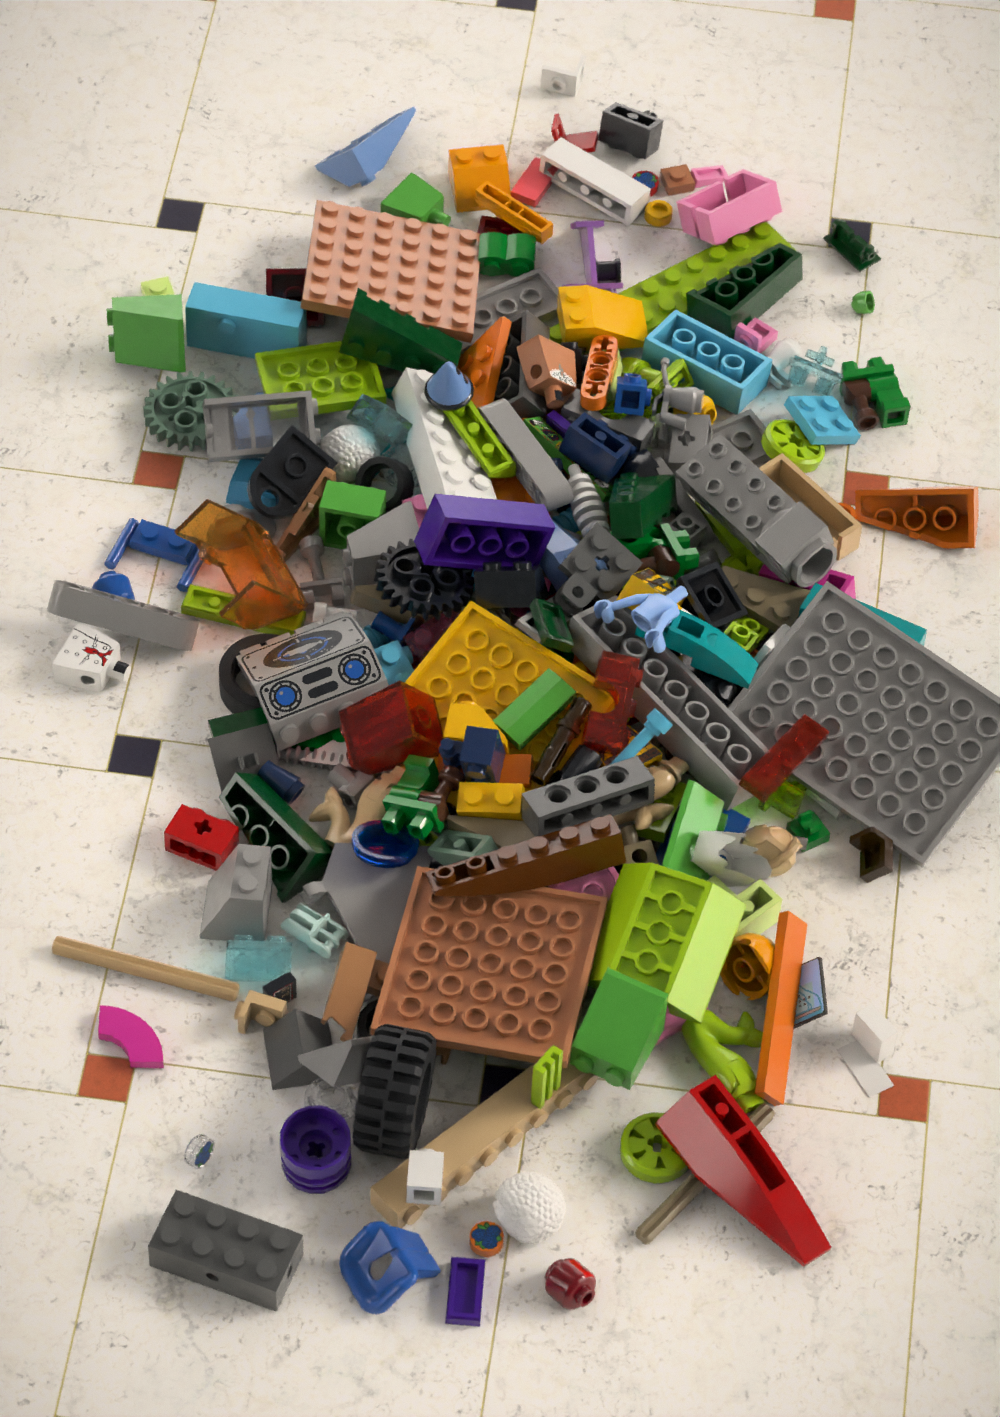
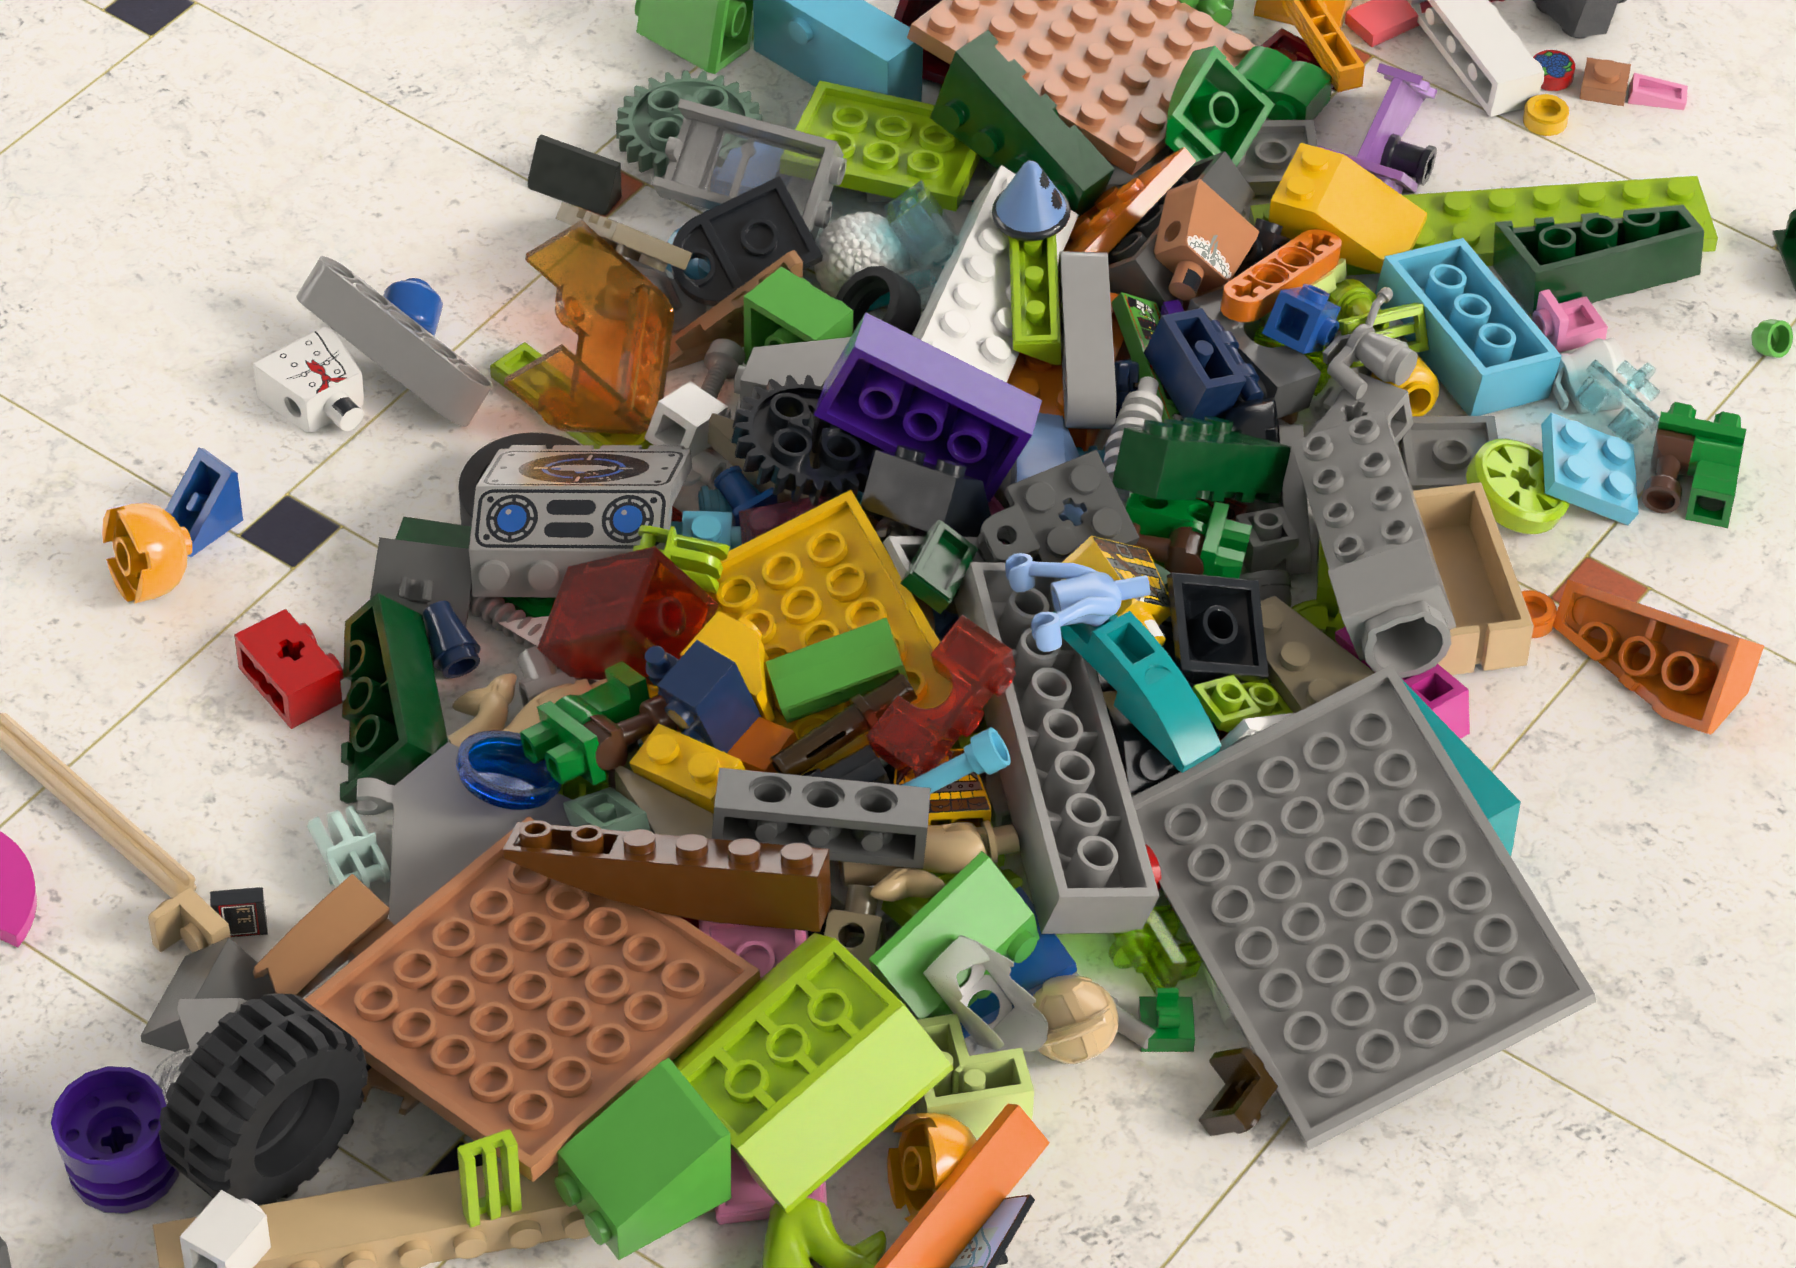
camera: 30 degrees right, 5 degrees down
(71, 805) = (147, 550): none -> light orange cylinder
(80, 762) = (206, 500): none -> blue slope
(145, 468) = (575, 175): none -> pearl dark grey slope
(160, 542) = (505, 261): blue plate -> none
(239, 895) = (277, 764): light grey slope -> none
(247, 499) = (628, 240): none -> dark tan wing
(257, 959) = (240, 857): clear light blue bracket -> none
(329, 594) = (684, 418): none -> white brick
(409, 674) = (694, 556): none -> lime arm
(494, 284) = (1214, 108): none -> green slope
(712, 219) = (1624, 139): bright pink piece -> none
(784, 758) = (1164, 889): clear red tile -> none

